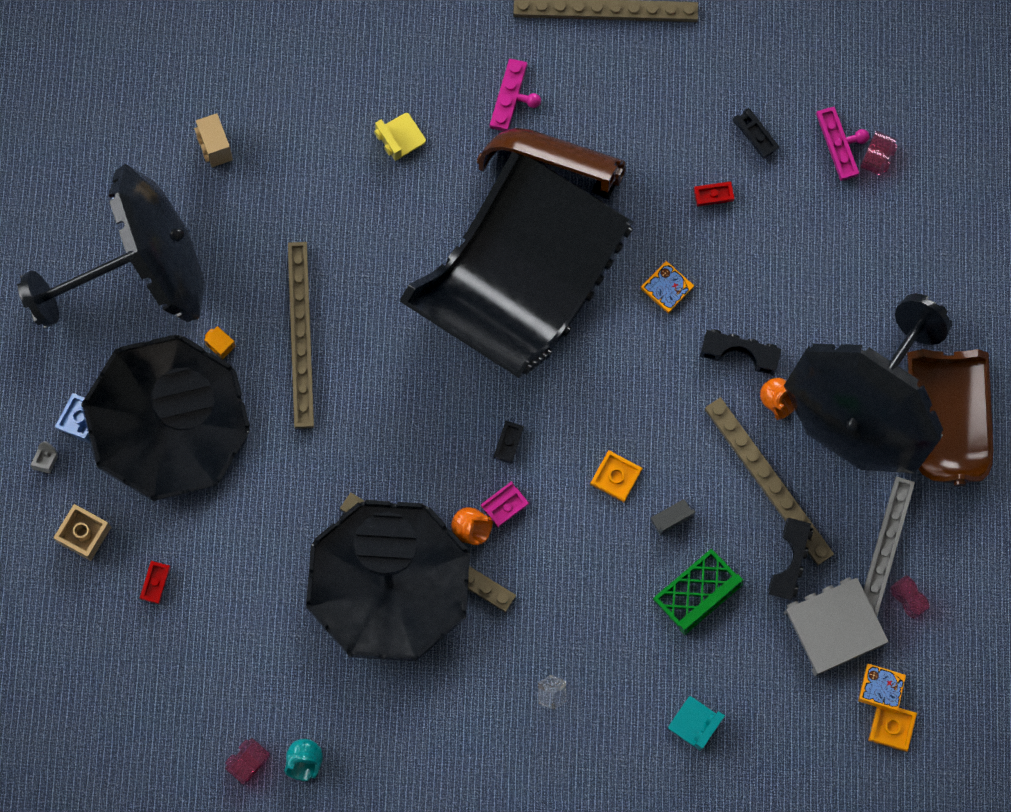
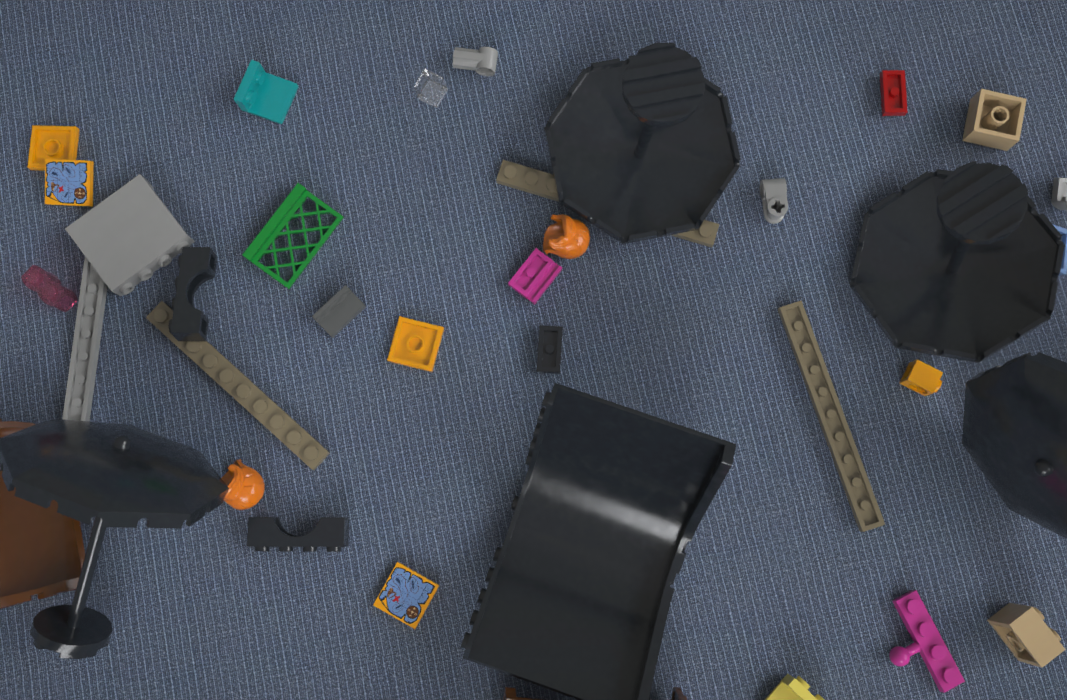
camera: 175 degrees right, 5 degrees up
(285, 156) = (926, 642): none -> dark pink plate
(287, 520) = (774, 195): none -> light grey piece
(502, 706) = (481, 60): none -> light grey piece

